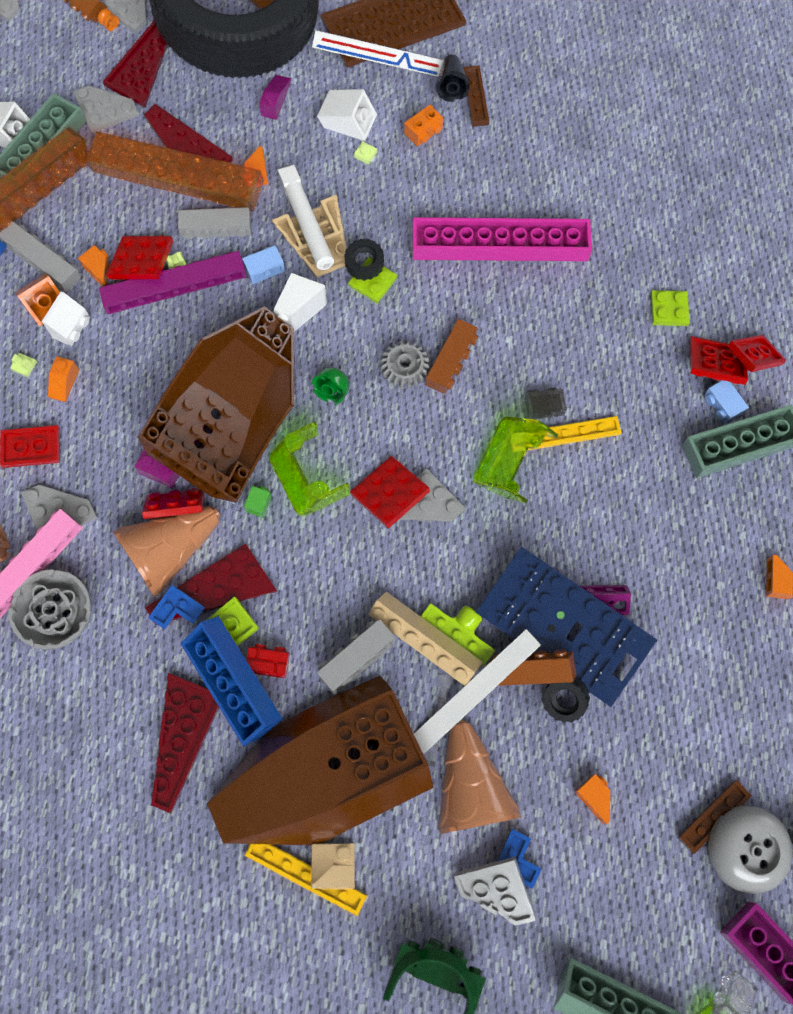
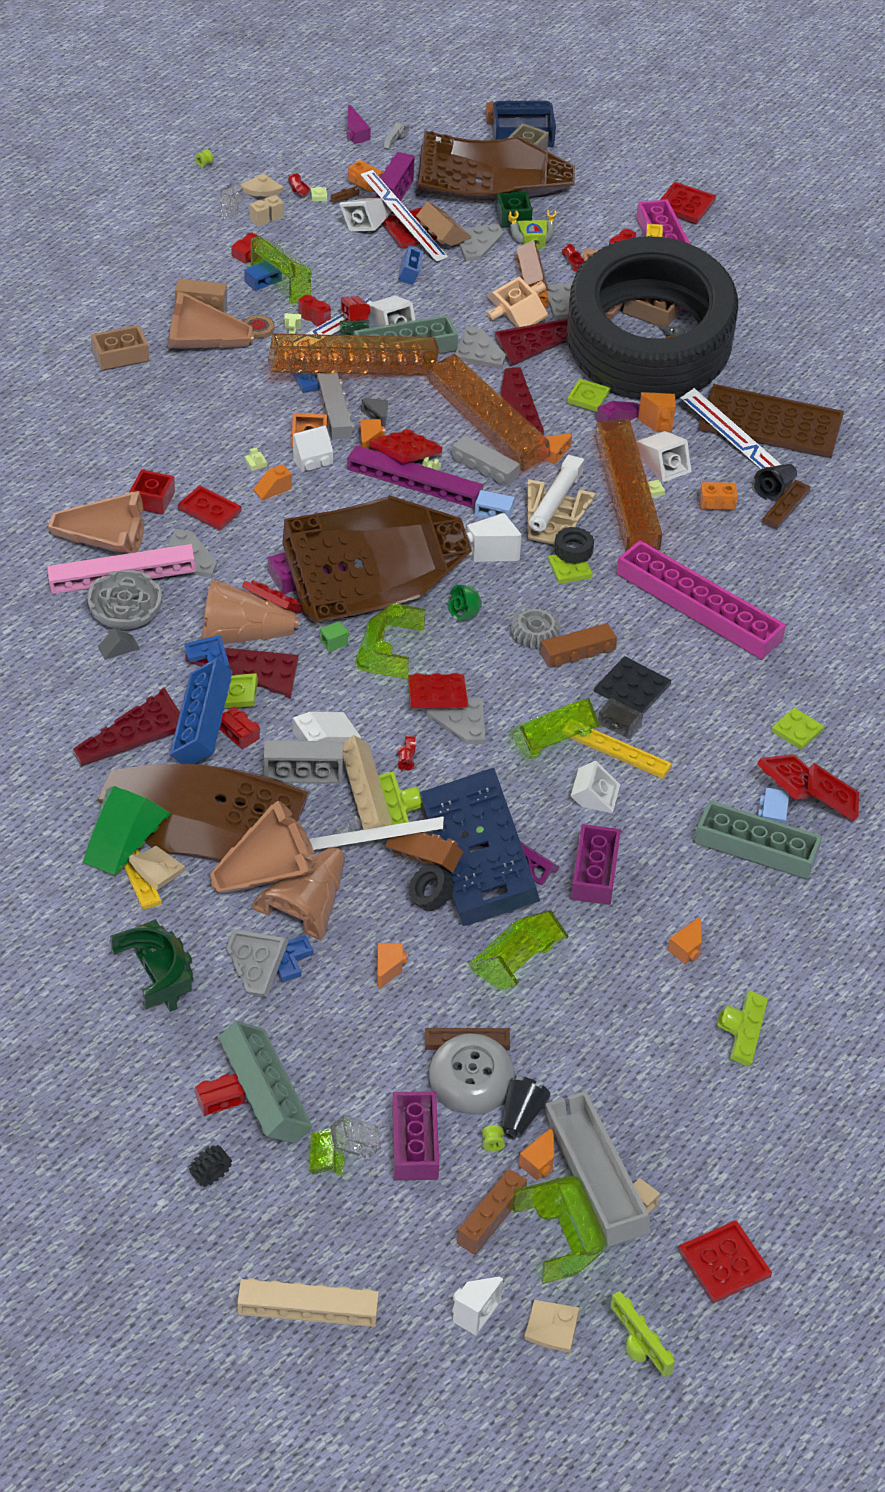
camera: 40 degrees right, 25 degrees down
(78, 235) = (375, 409): none -> dark grey slope
(85, 657) = (117, 643): none -> dark grey slope
(95, 37) = (518, 303): none -> light nougat slope
(234, 94) = (588, 395): none -> lime plate
(276, 864) = (121, 828): none -> green wedge
(308, 73) = (657, 411): none -> orange slope
(338, 605) = (323, 727): none -> white slope
(349, 165) = (627, 484): none -> clear orange brick
(421, 575) = (406, 754): none -> red connector
(431, 791) = (267, 853): none -> nougat cone
(522, 362) = (632, 685): none -> black plate
(587, 489) = (595, 788): none -> white slope
(657, 565) = (595, 864): none -> magenta brick
(666, 702) = (516, 947): none -> clear neon green windscreen

